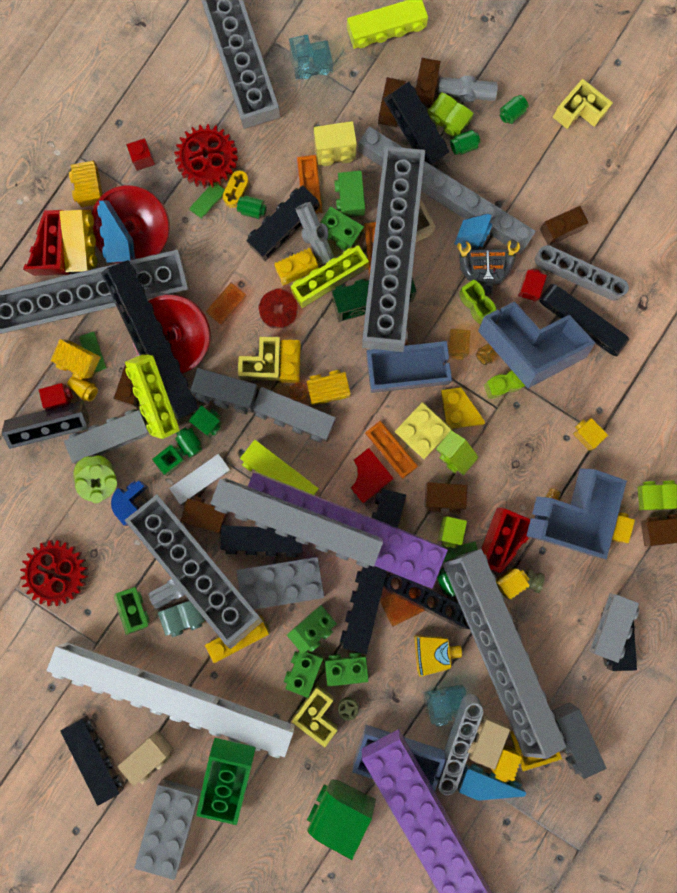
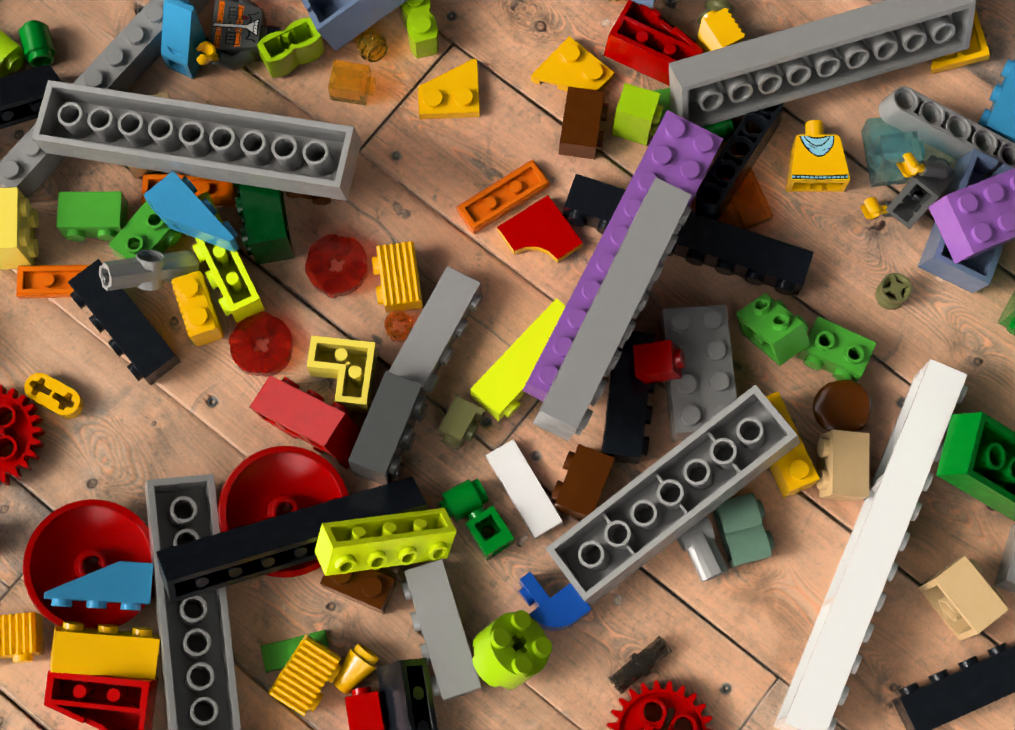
camera: 85 degrees left, 10 degrees down
(96, 558) = (640, 665): none -> clear smoke pin
(131, 611) = (730, 608): bright green brick -> none
(207, 200) = (66, 442): bright green piece -> none
(207, 421) = (433, 468): green brick -> none
(226, 303) = (242, 423): clear orange plate -> none
(226, 679) = (843, 465): none -> tan brick
(230, 341) = (307, 418): none -> wedge
(236, 435) = (460, 422): none -> olive brick
(251, 207) = (88, 370): green brick -> none
(265, 677) = (842, 406): none -> reddish brown piece
(278, 555) = (658, 361): none -> red brick
(289, 361) = (350, 326): yellow brick -> none
(311, 718) = (901, 341): light yellow brick -> none
(322, 349) = (339, 248): none -> clear red plate
(346, 669) = (834, 287): bright green brick -> none
(351, 247) = (184, 212): none -> dark azure slope
(414, 368) = (384, 162): sand blue piece -> none
(415, 723) = (921, 191): none -> dark grey torso
(423, 430) = (479, 141): light yellow brick -> none
(456, 453) = (519, 95): lime brick -> none
(484, 488) = (573, 67): none -> yellow wing
(488, 742) = (951, 86): tan brick -> none
(507, 764) = (977, 74): yellow brick -> none

